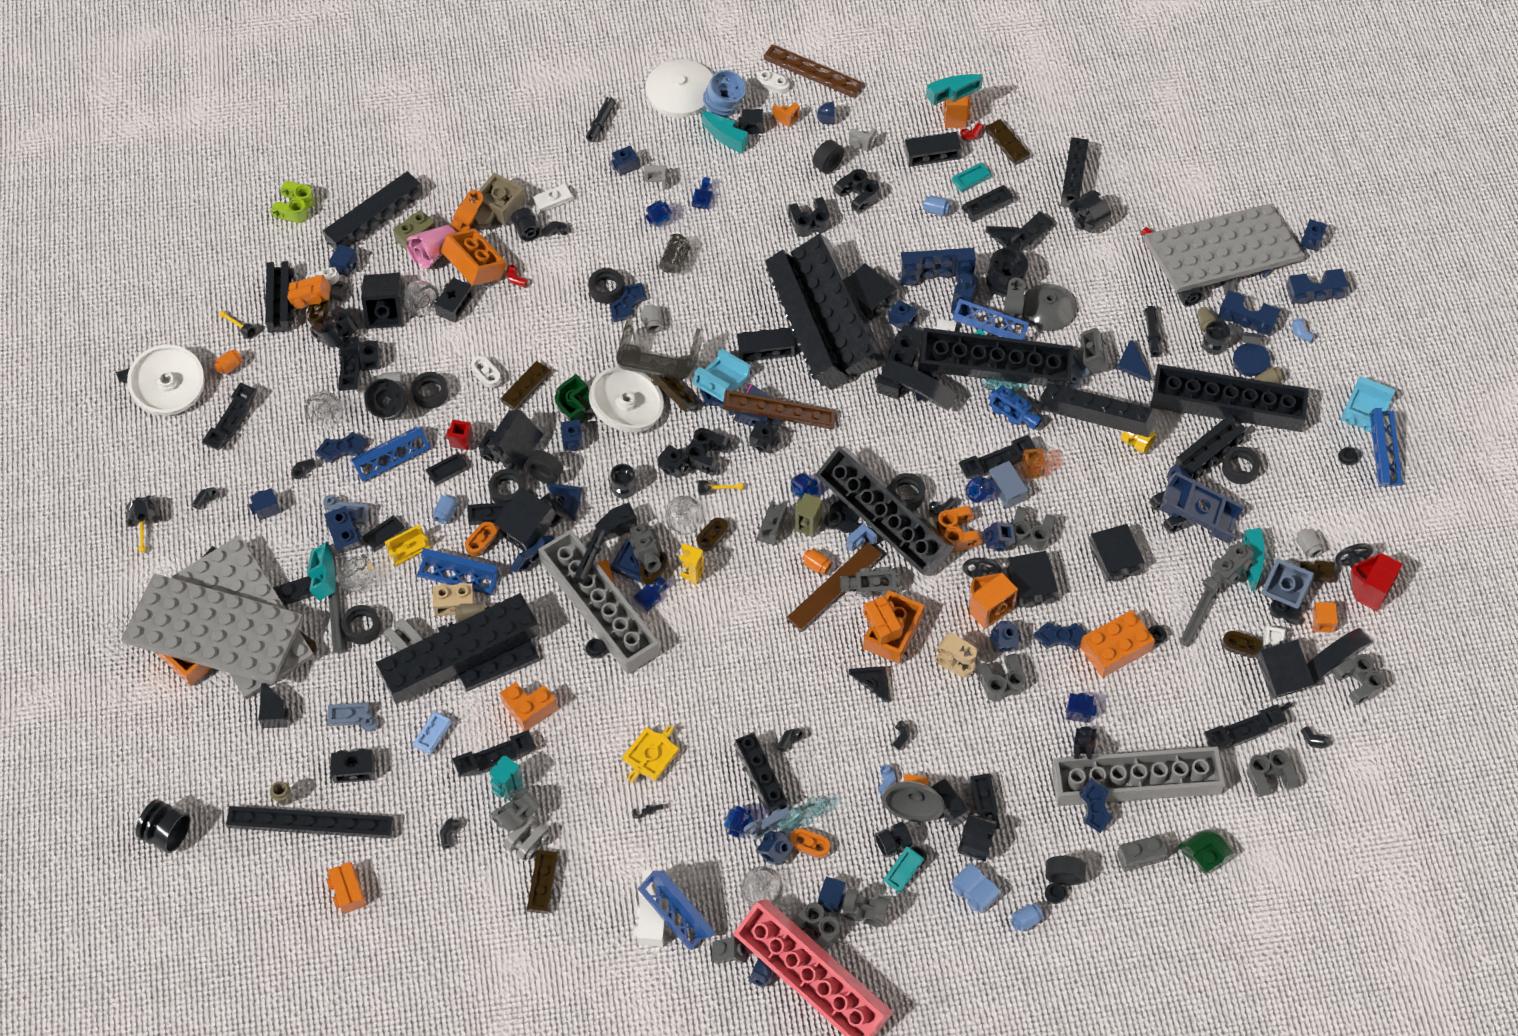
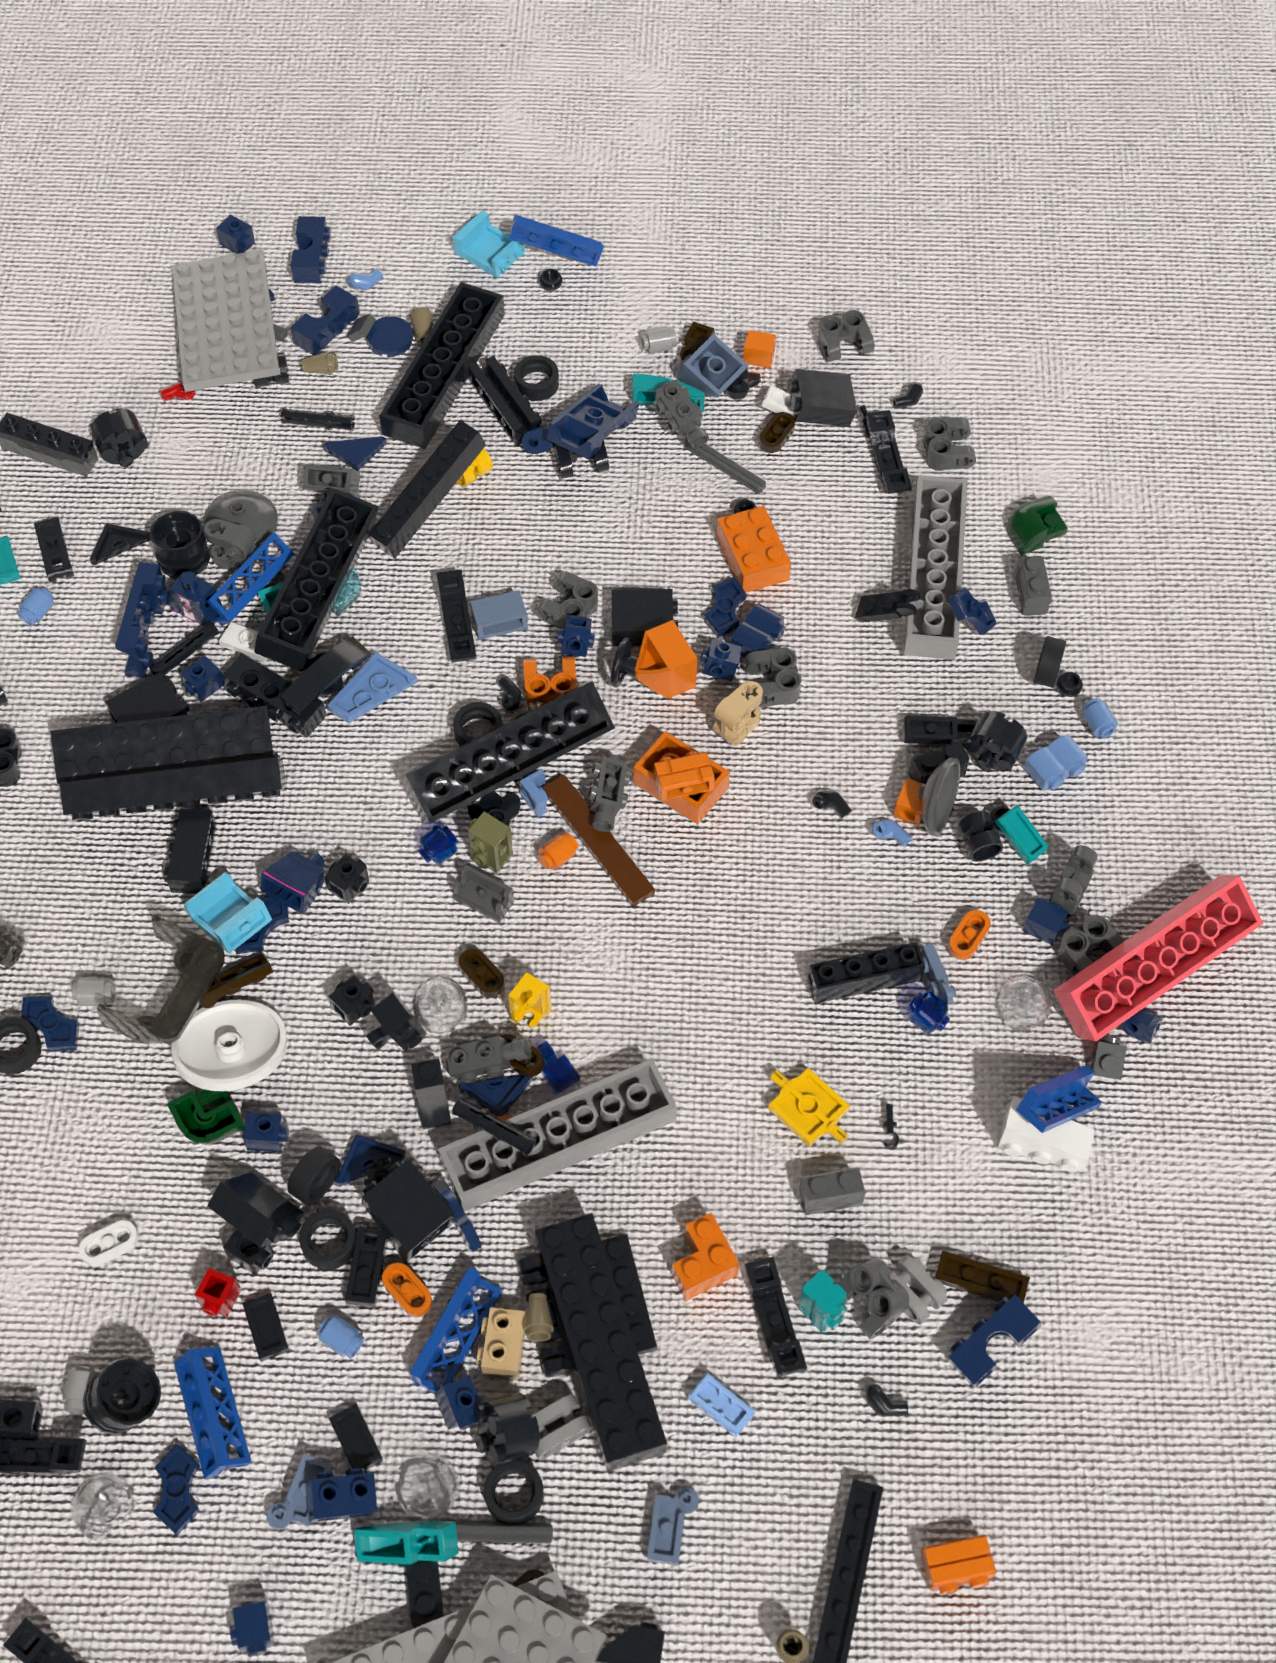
camera: 80 degrees left, 0 degrees up
(301, 467) = (196, 1561): black arm -> none
(361, 772) = (757, 1551): black brick -> none
(393, 606) = (506, 1429): none -> black brick
(407, 545) = (392, 1402): yellow hinge -> none
(409, 581) = (458, 1403): none -> dark blue brick
(426, 378) = (103, 1314): black tyre -> none
(484, 880) = (1010, 1320): none -> dark blue arch
(525, 385) = (151, 1189): dark brown plate -> none
(589, 776) = (832, 1191): none -> dark grey brick
(595, 648) = (626, 1156): black plate -> none
(623, 481) = (366, 1071): black wheel -> none
(658, 488) = (396, 1023): none -> black brick
(705, 487) = (402, 970): hinge -> none
(712, 441) = (330, 946): black piece -> none
(775, 847) = (974, 973): dark blue brick -> none
(779, 409) = (310, 849): reddish brown tile -> none
(790, 736) = (810, 931): black arm -> none
(814, 807) = (930, 923): clear light blue plate -> none
(873, 679) = (745, 820): black tile -> none
(923, 299) = (192, 643): none -> black pin
(923, 418) = (370, 687): none -> medium blue wing
(979, 489) = (501, 644): clear blue head -> none
(1013, 407) = (388, 583): blue brick -> none
(1032, 230) = (118, 509): black hinge -> none
(1033, 463) = (479, 578): clear orange brick -> none
(1040, 659) = (758, 630): none -> dark blue brick
(1080, 707) = (830, 605): clear blue brick -> none
(1116, 553) = (627, 523): black brick -> none
(1216, 337) = (352, 357): black wheel -> none
(1337, 653) = (806, 345): black slope -> none
(1369, 576) = (728, 290): red piece -> none

